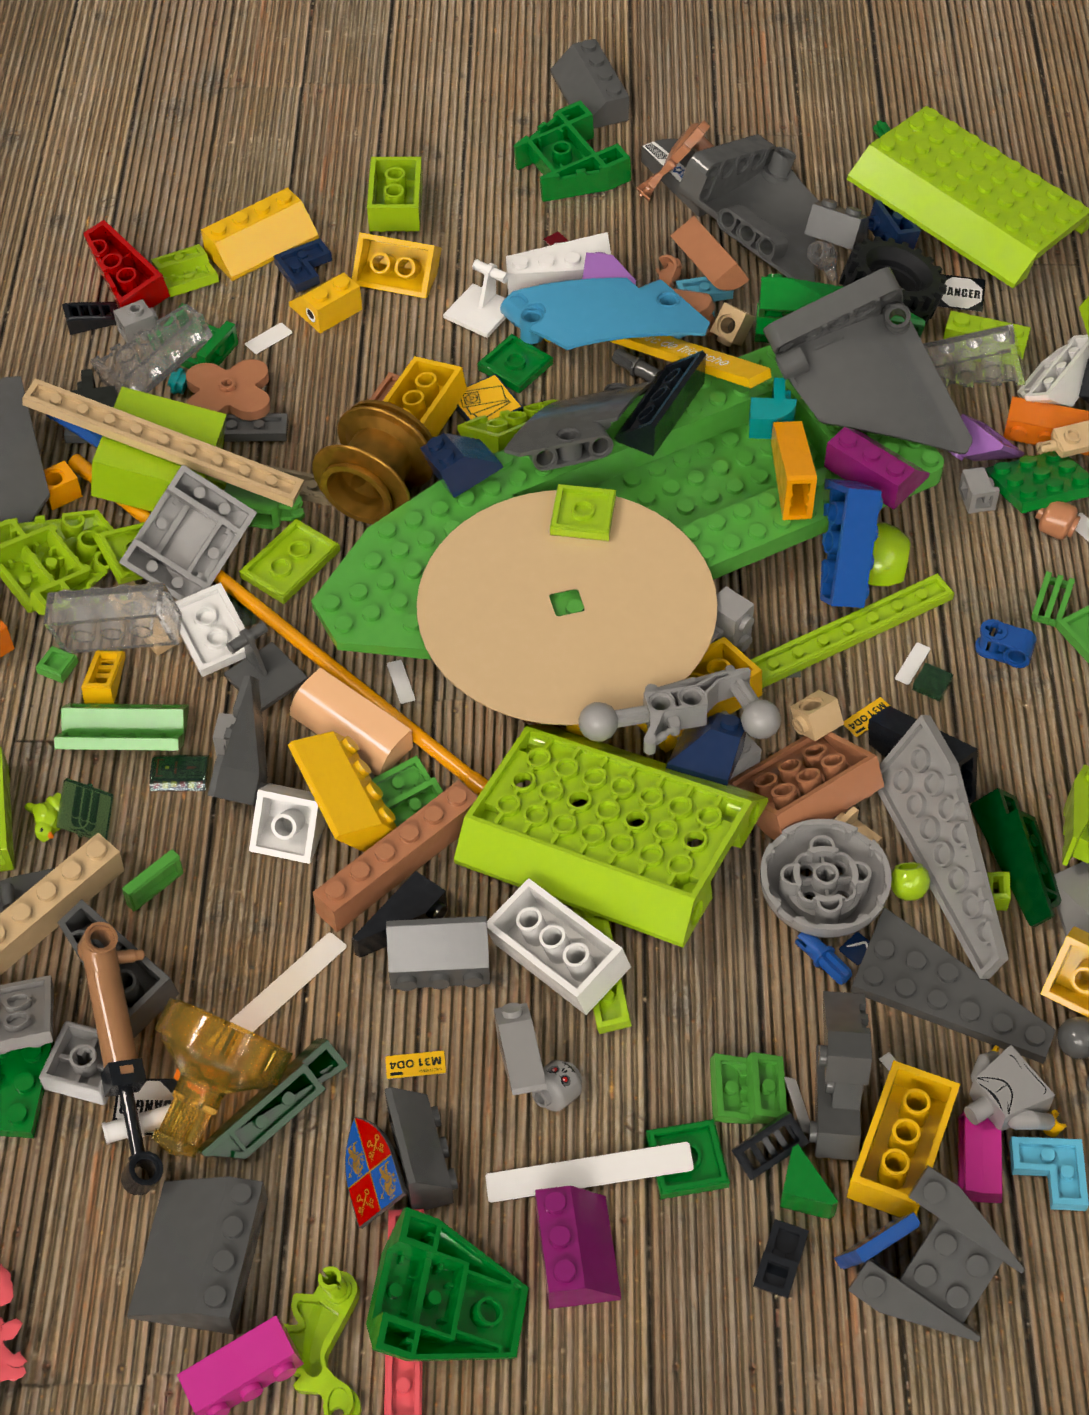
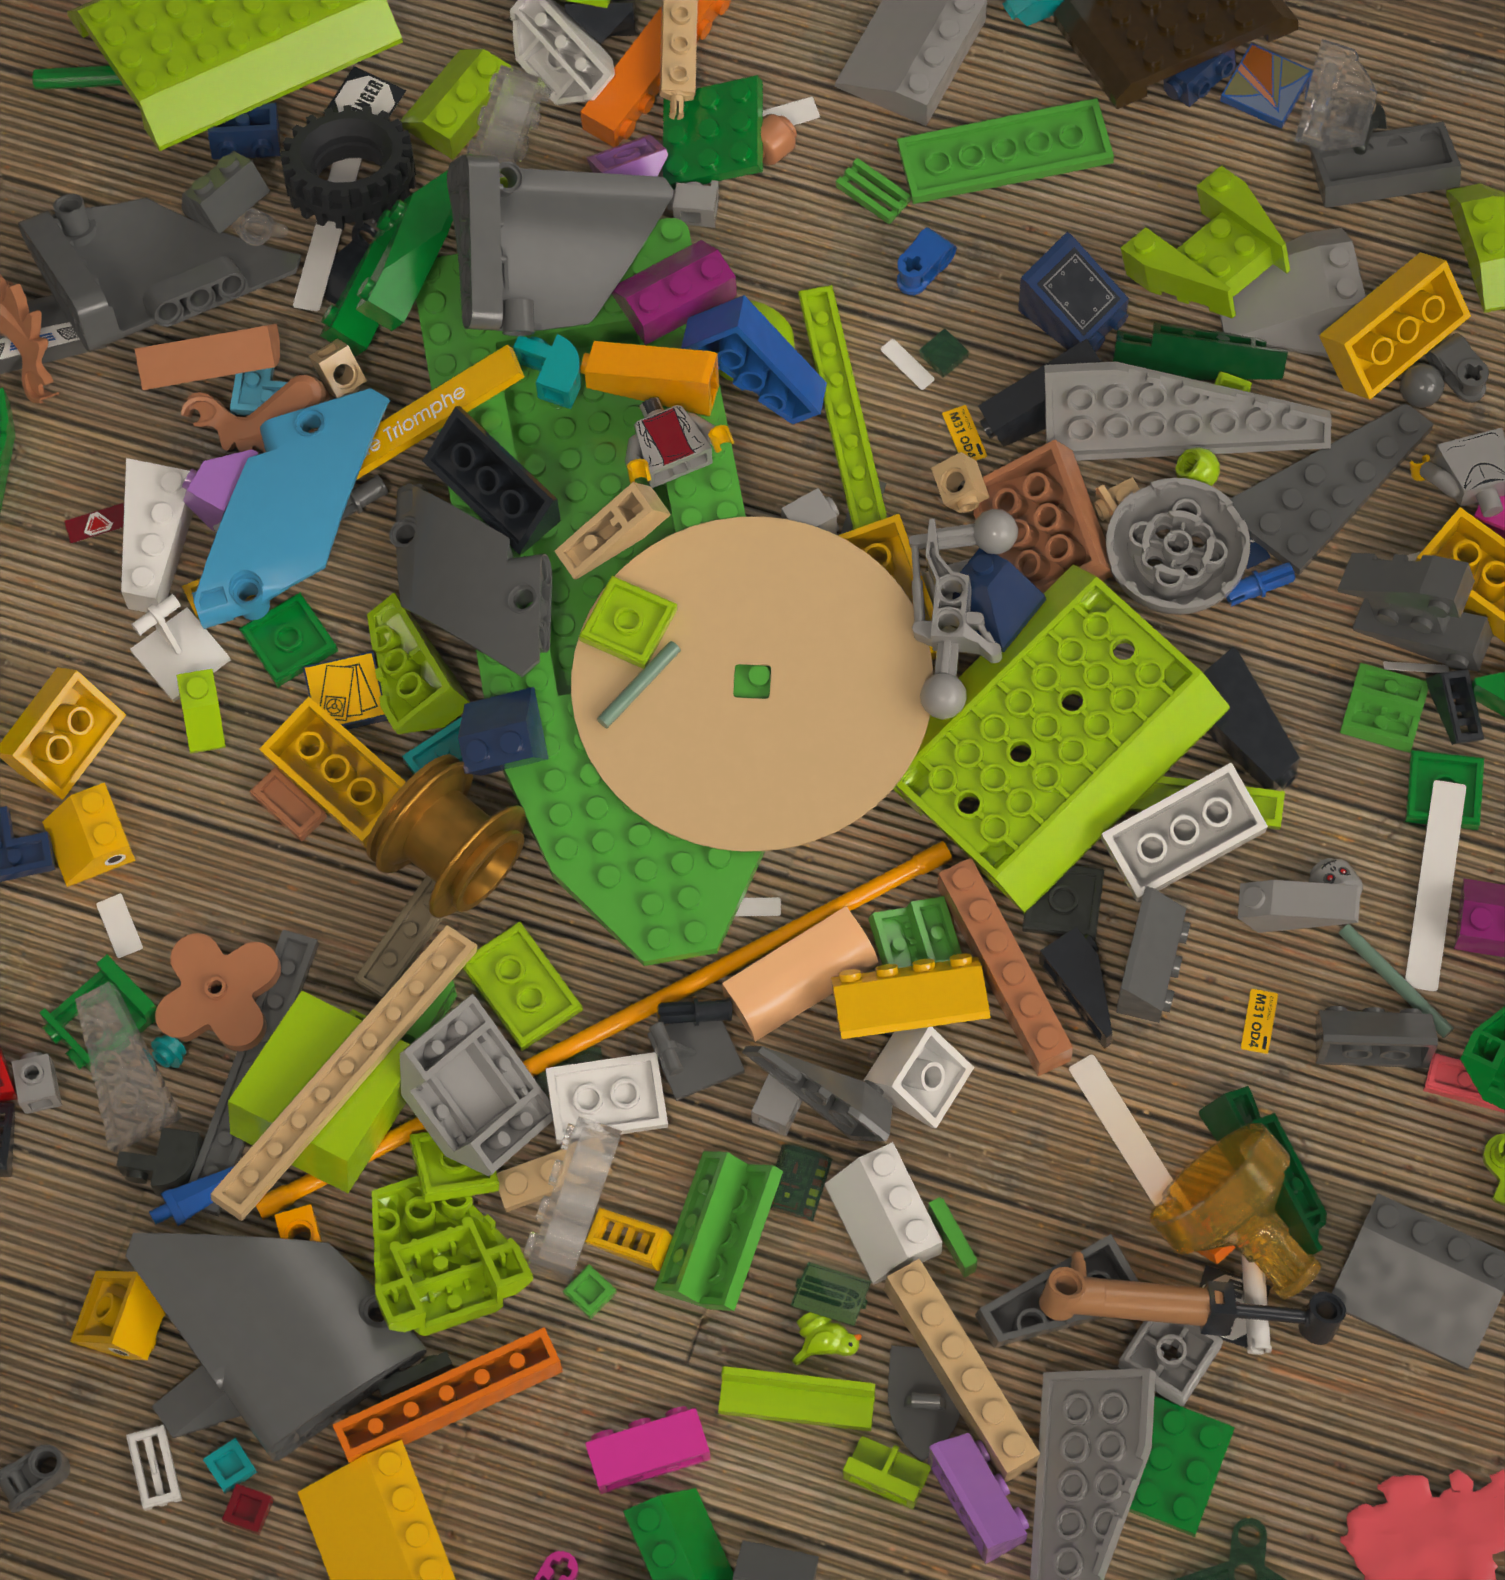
camera: 70 degrees left, 15 degrees up
(175, 824) = (883, 1213): none -> white slope
(293, 659) = (695, 1011): none -> black axle
(371, 1171) = (1385, 1088): shield -> none
(437, 325) = (200, 711): none -> lime slope
(472, 892) = (1068, 904): none -> pearl dark grey tile
(485, 1164) = (1393, 978): none -> sand green bar
(534, 531) = (637, 686): none -> sand green bar
(657, 480) = (613, 529): none -> tan slope
(687, 977) = (1250, 727): none -> black slope
(737, 491) = (671, 443): none -> torso
(1023, 745) = (1072, 296): none -> slope

